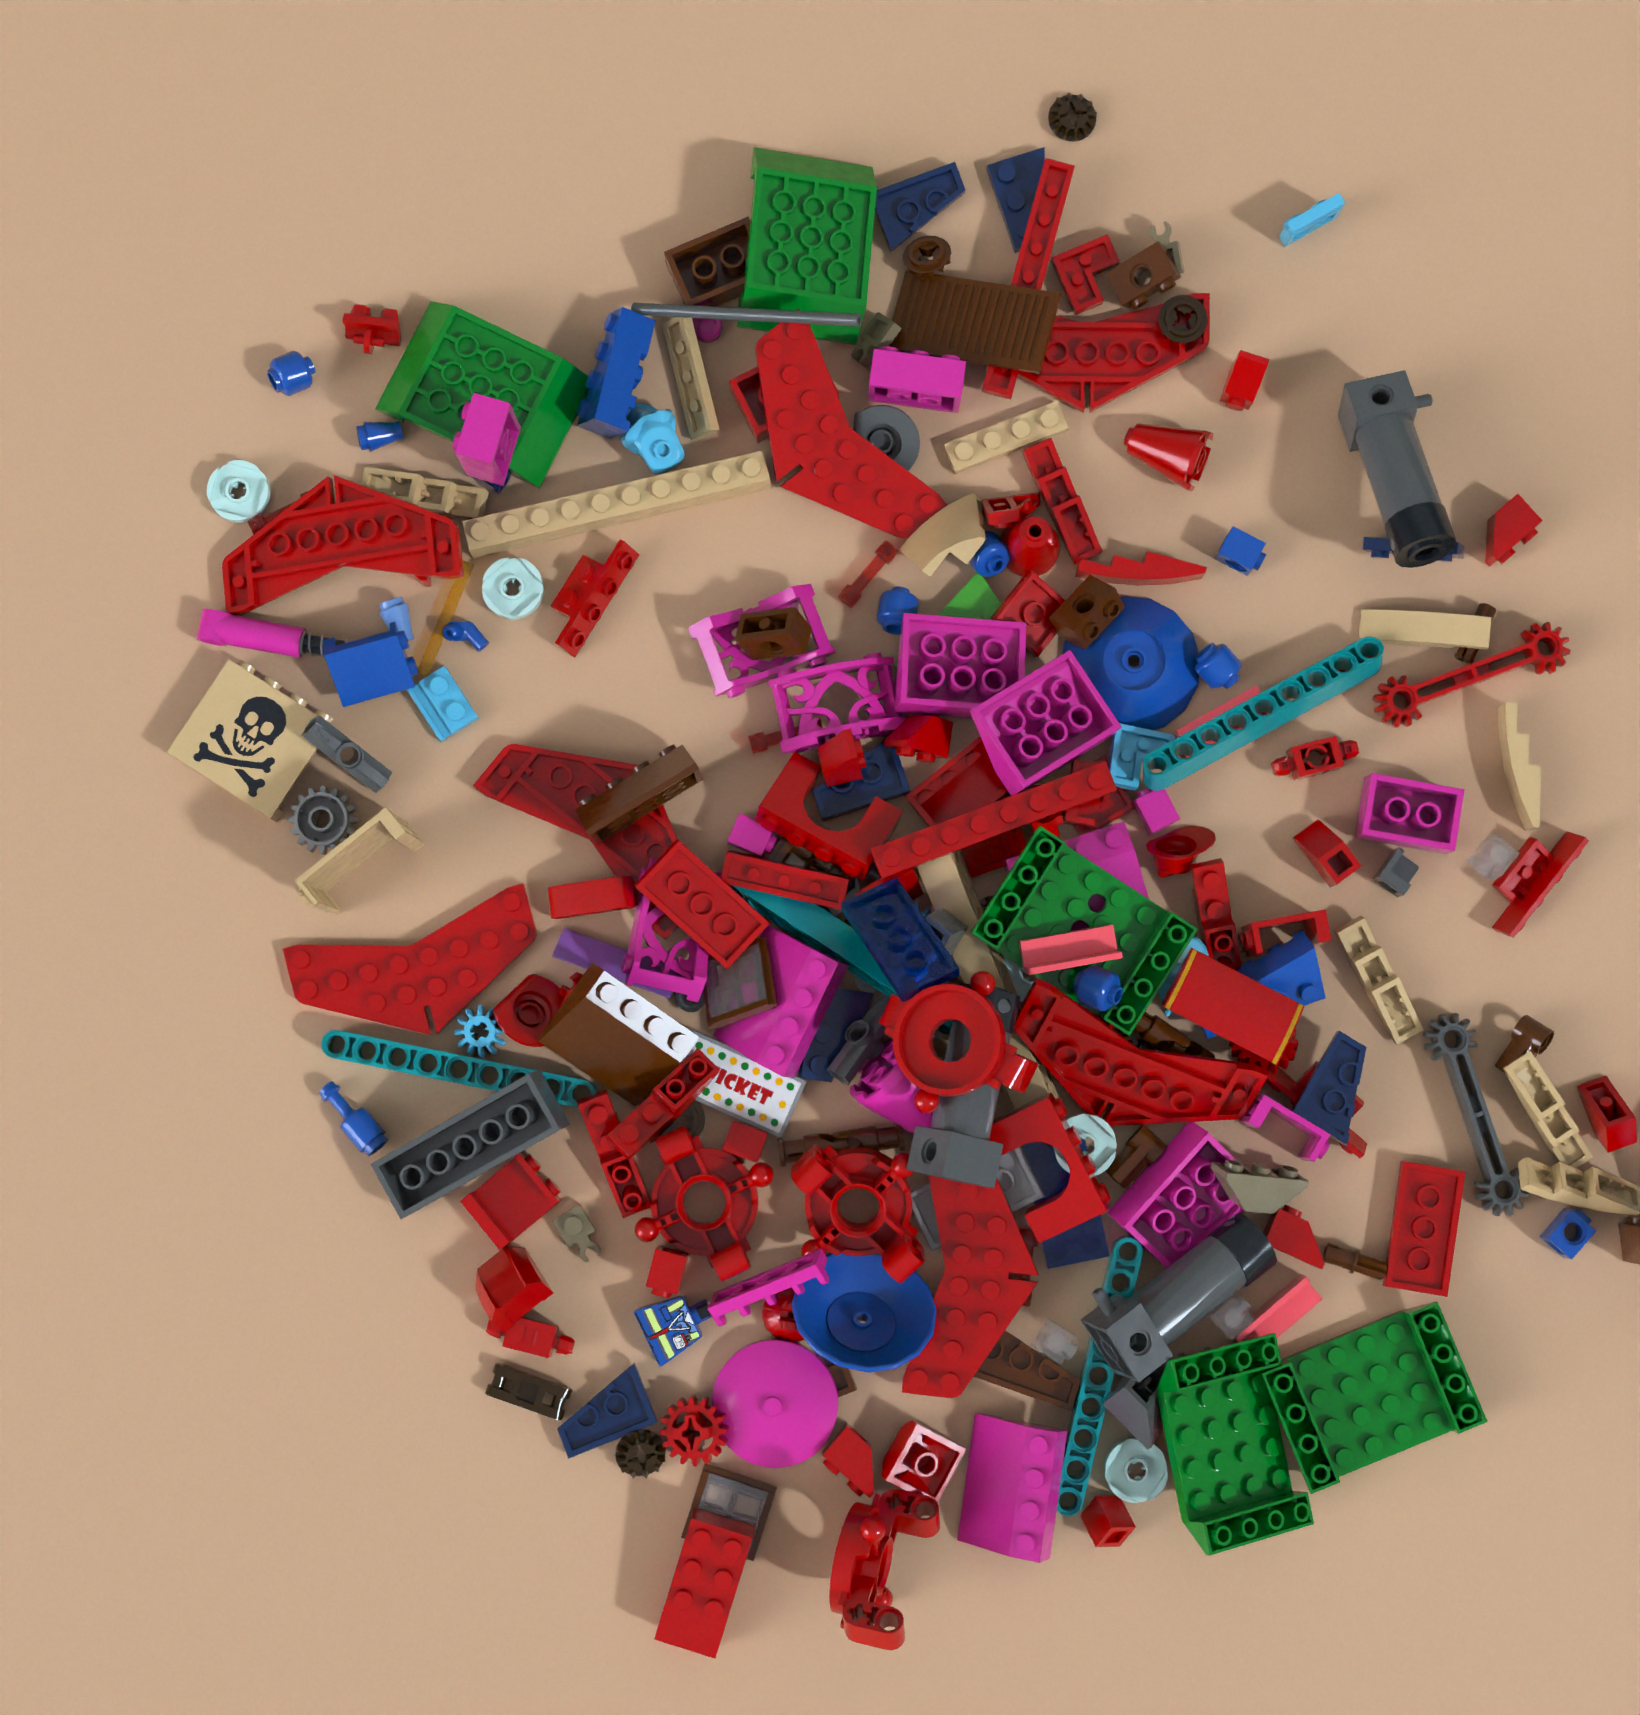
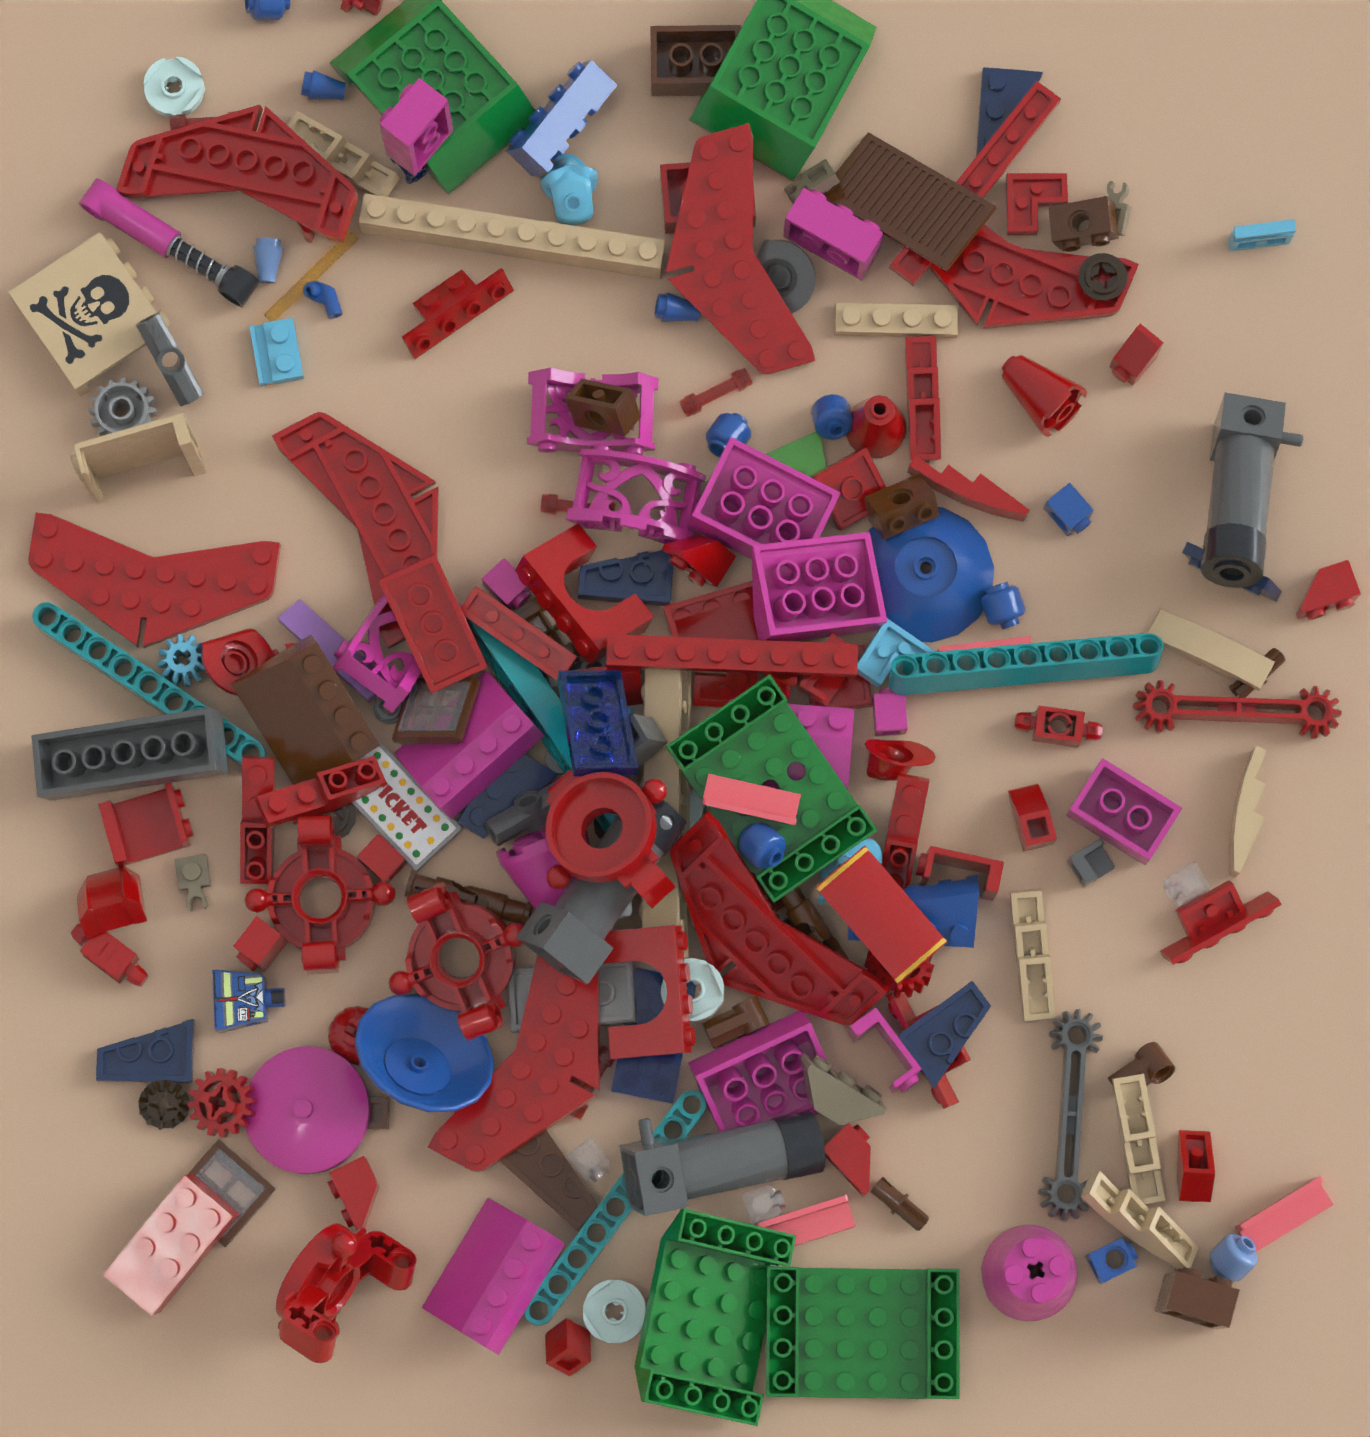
camera: 20 degrees right, 5 degrees down
(357, 1124) = (35, 697): blue piece -> none
(370, 666) = (225, 289): blue panel -> none
(495, 586) = (369, 266): light aqua plate -> none
(528, 1391) = (86, 1005): dark brown plate -> none
(591, 897) = (336, 579): red beam -> none
(638, 794) = (418, 503): reddish brown slope -> none
(690, 377) = (628, 149): tan plate -> none
(707, 329) = (664, 110): dark pink tile -> none
(748, 314) = (700, 110): dark grey piece -> none
(767, 1285) = (343, 995): dark pink hinge -> none
(796, 511) = (674, 308): none -> blue cone
(842, 759) = (618, 546): red slope -> none
(916, 201) = (903, 74): dark blue wing -> none
(921, 1460) = (419, 1218): red slope -> none
(927, 246) = (898, 119): reddish brown gear -> none
(952, 530) = (809, 382): tan slope -> none
(1009, 509) = (864, 383): red wing -> none
(1063, 127) = (1068, 61): dark brown gear -> none
(1138, 1406) = (638, 1245): dark grey slope -> none
(1424, 1228) = (978, 1200): red plate -> none
(1481, 1273) = (1007, 1274): none -> dark pink cone

